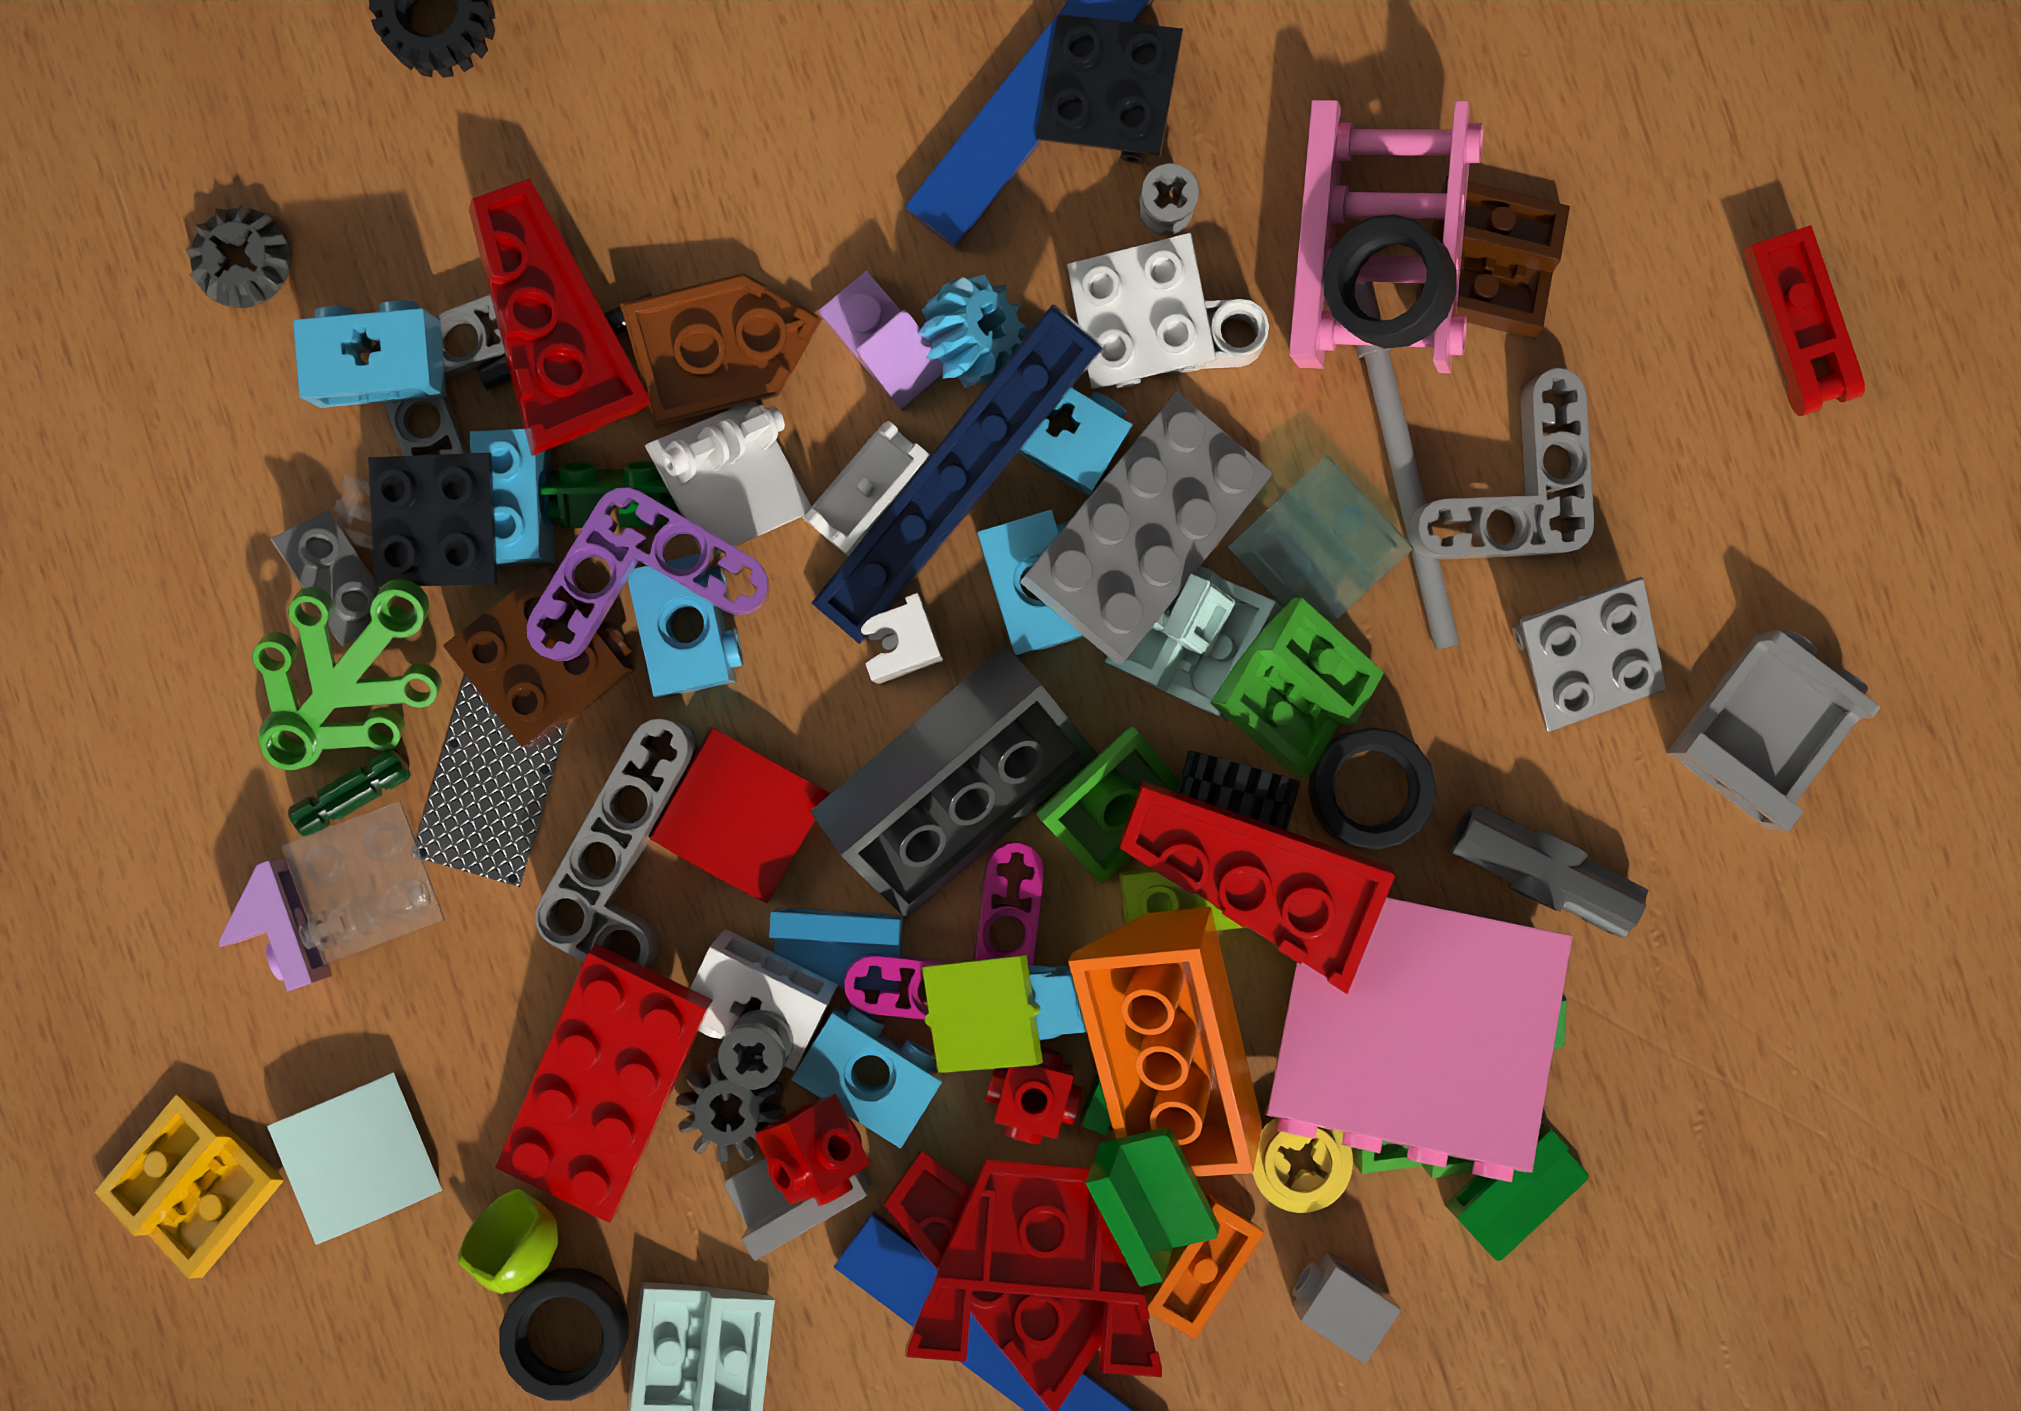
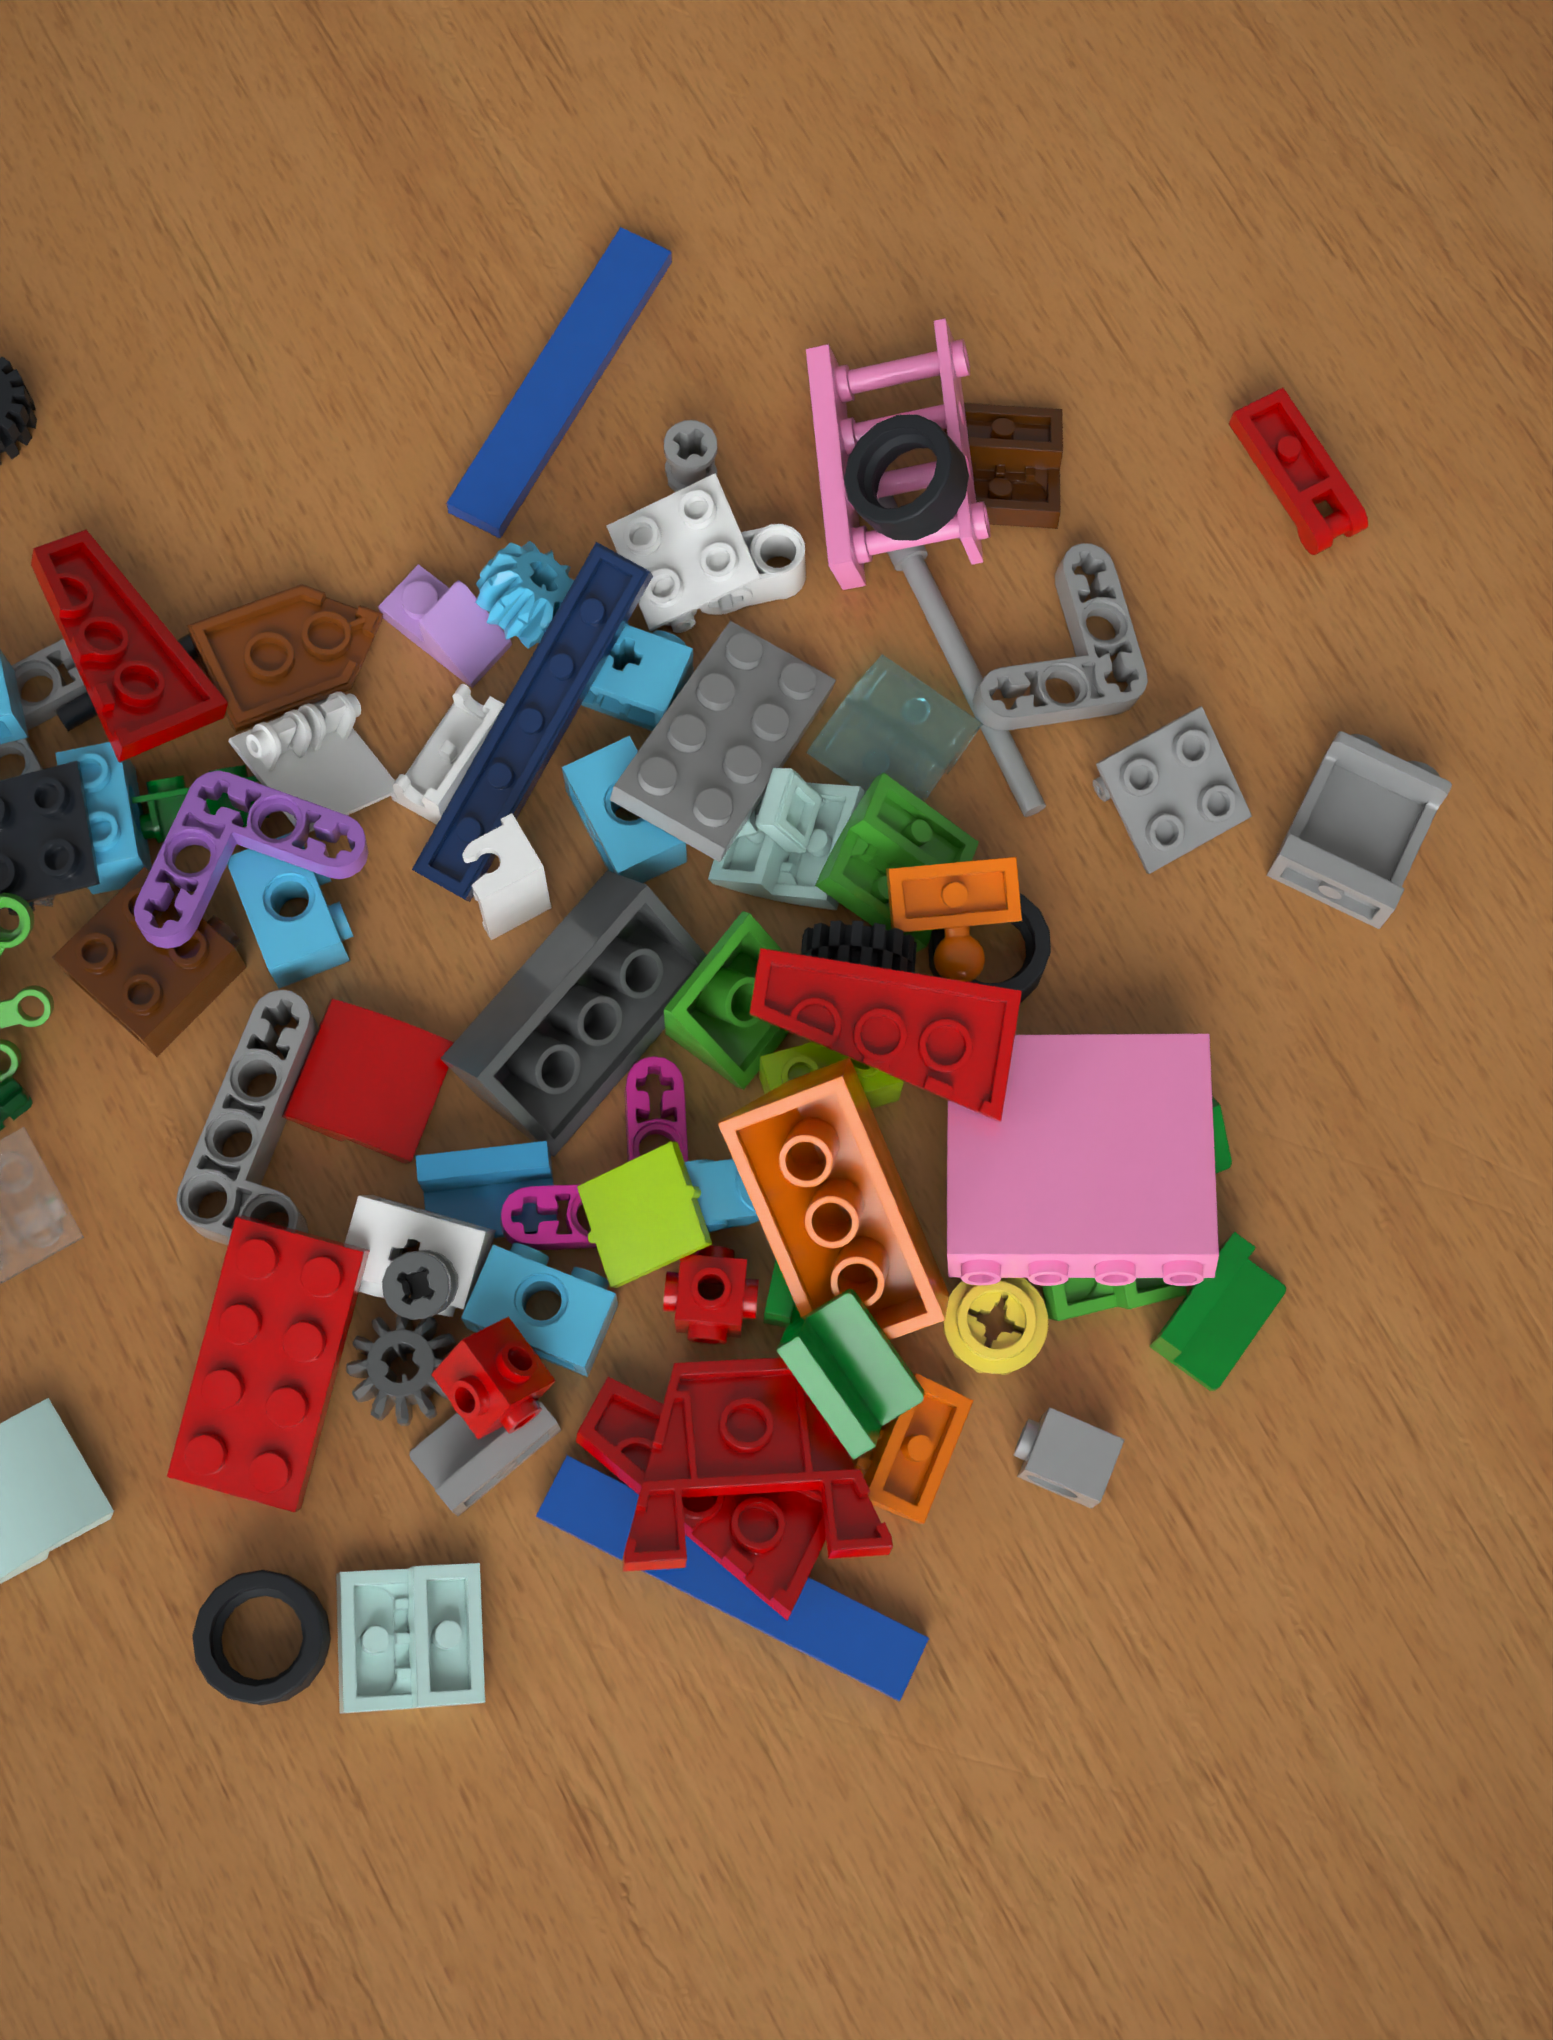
camera: 15 degrees left, 15 degrees down
(486, 794) = (111, 1106): flat silver sticker -> none
(509, 1242) = (193, 1547): lime hair -> none
(1109, 85) = (619, 371): black hinge -> none
(1346, 748) = (953, 900): none -> orange plate
(1548, 870) = (1177, 995): dark grey piece -> none

